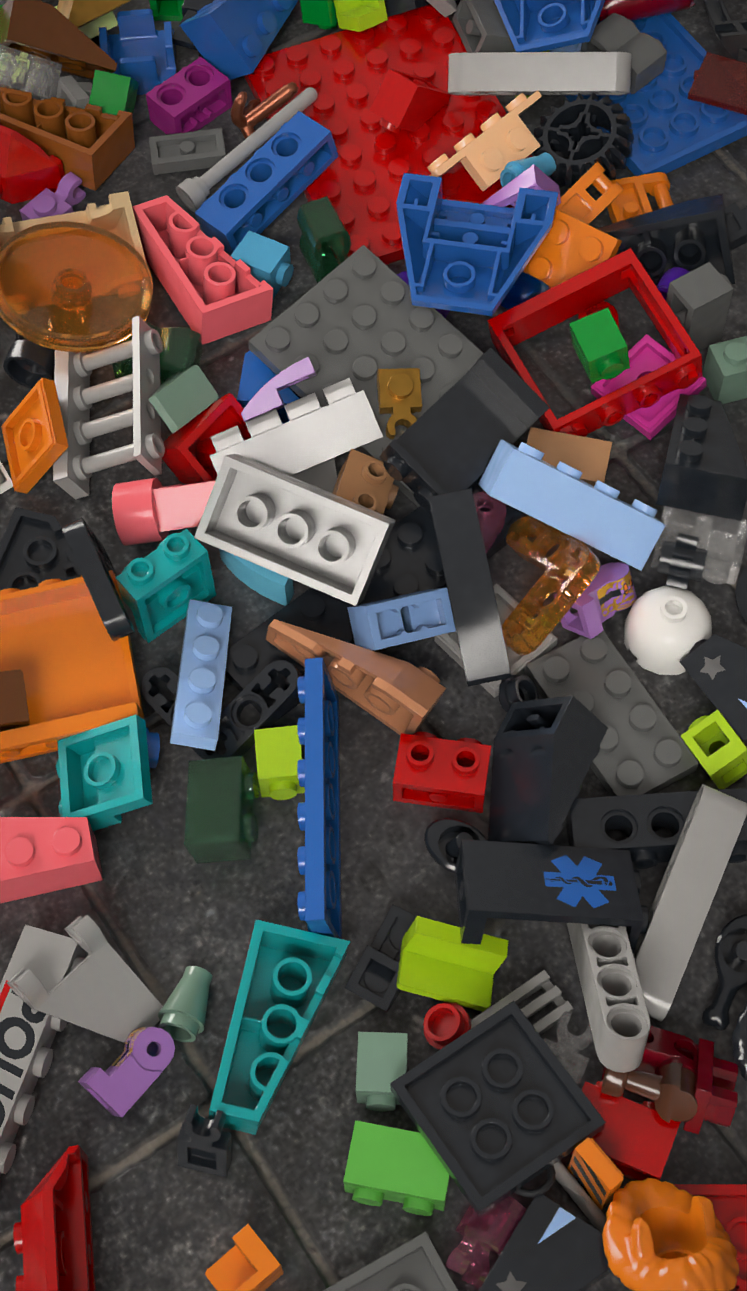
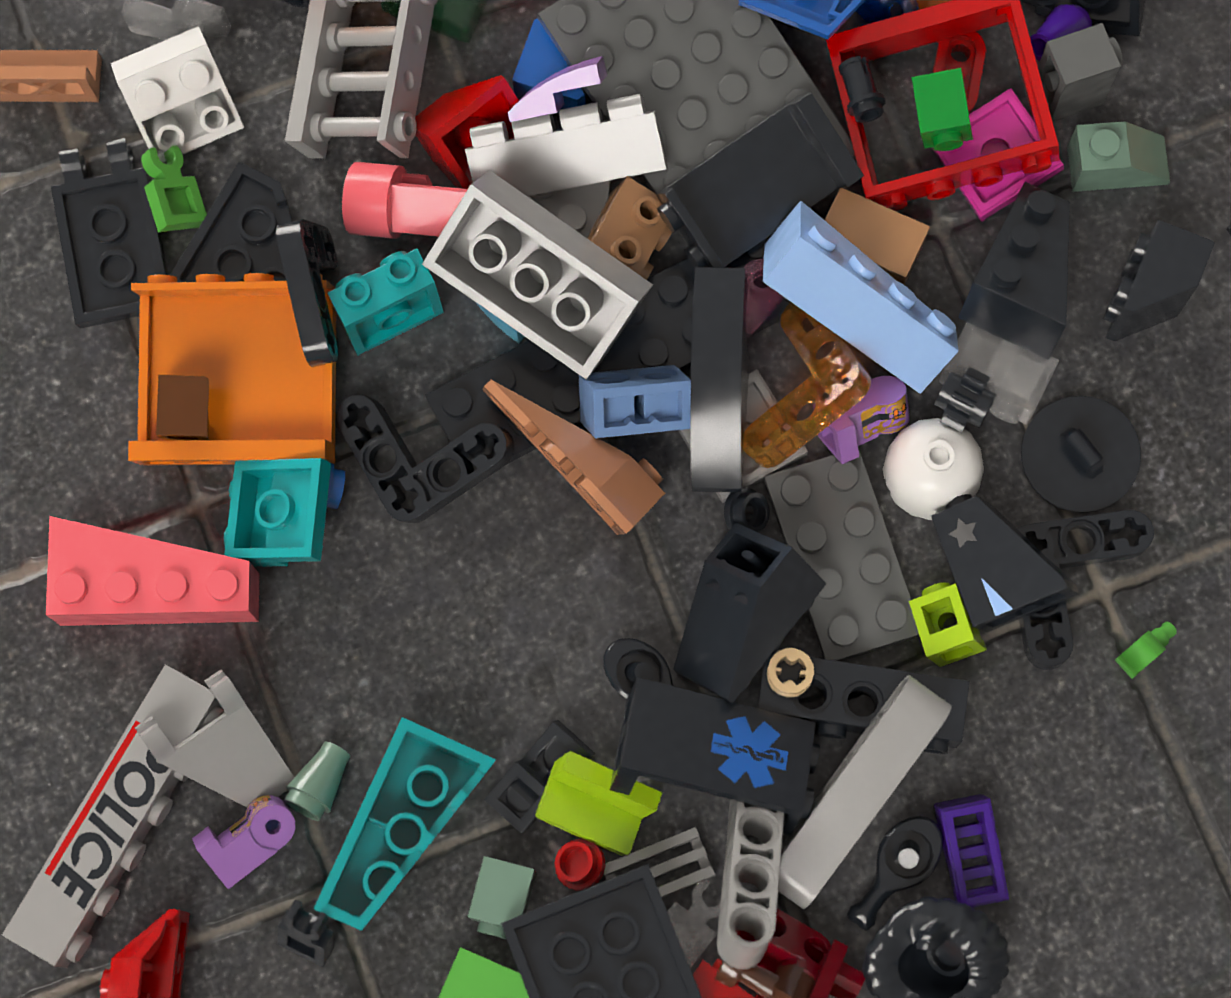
camera: 15 degrees right, 15 degrees up
(34, 435) = (274, 77): orange plate -> none
(183, 397) = (447, 68): sand green slope -> none
(201, 675) = (404, 415): light blue plate -> none
(220, 809) = (394, 577): clear green brick -> none
(277, 762) = (469, 535): lime brick -> none
(321, 810) = (498, 610): blue plate -> none
(400, 396) = (696, 119): pearl gold plate -> none
(441, 772) = (641, 582): red brick -> none
(534, 356) = (864, 98): none -> black pin
(592, 797) = (791, 657): none -> tan bush

